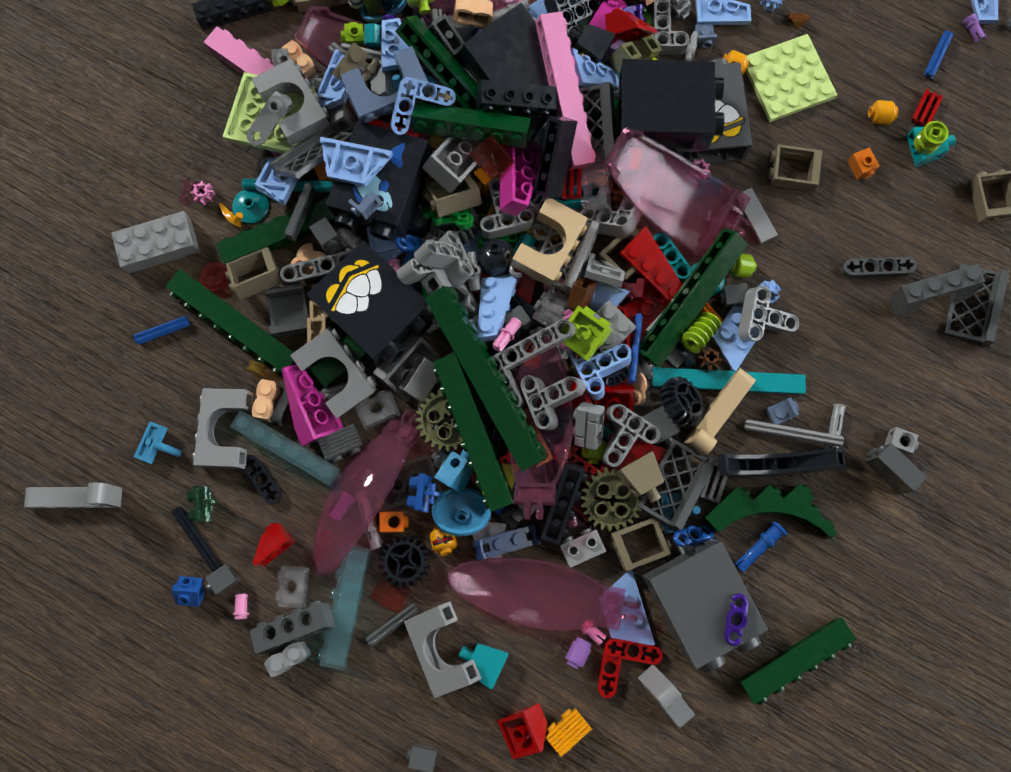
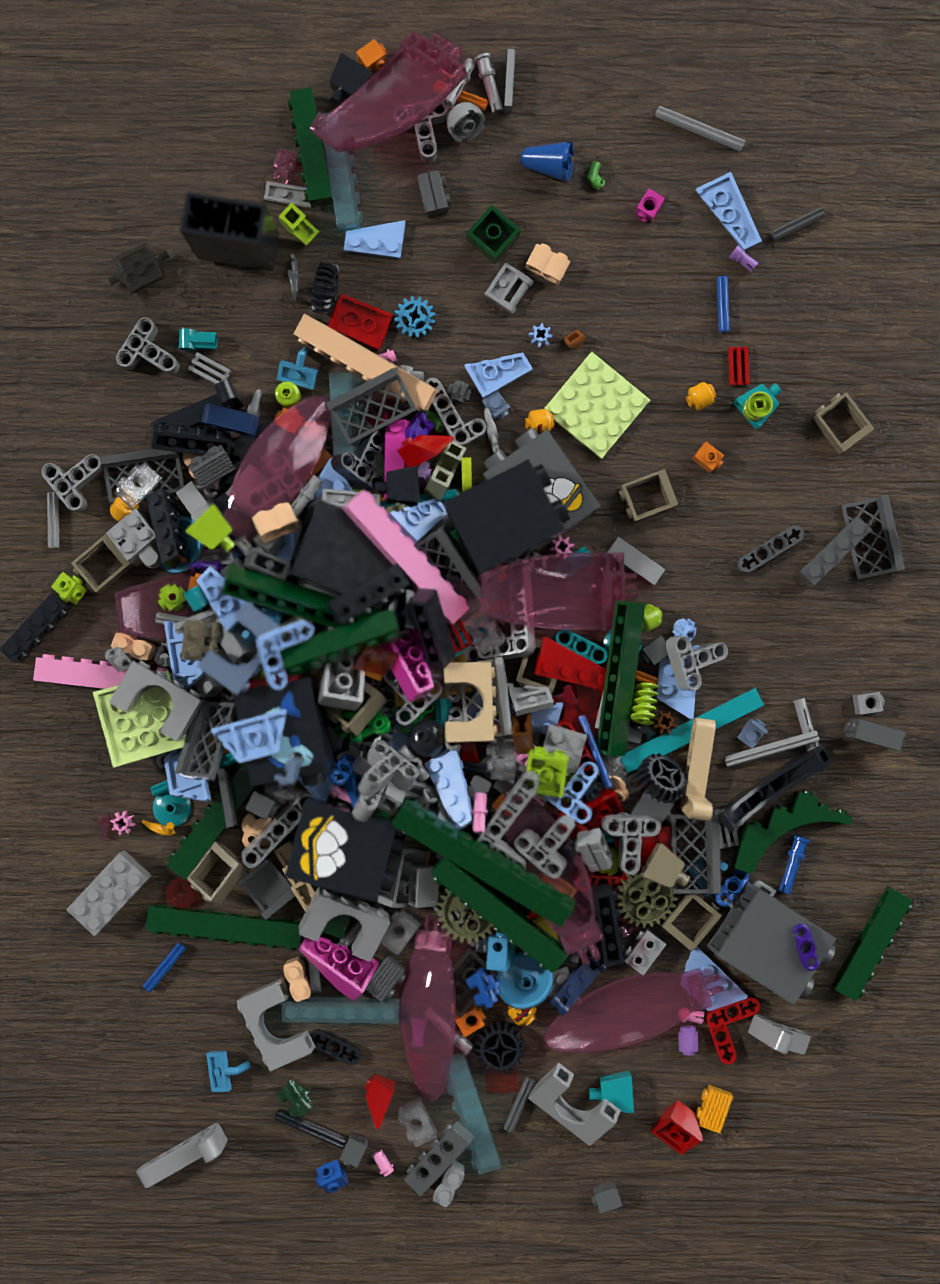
camera: 30 degrees left, 10 degrees up
(255, 367) = (269, 954): clear yellow bush -> none
(268, 118) = (149, 729): light grey piece -> none

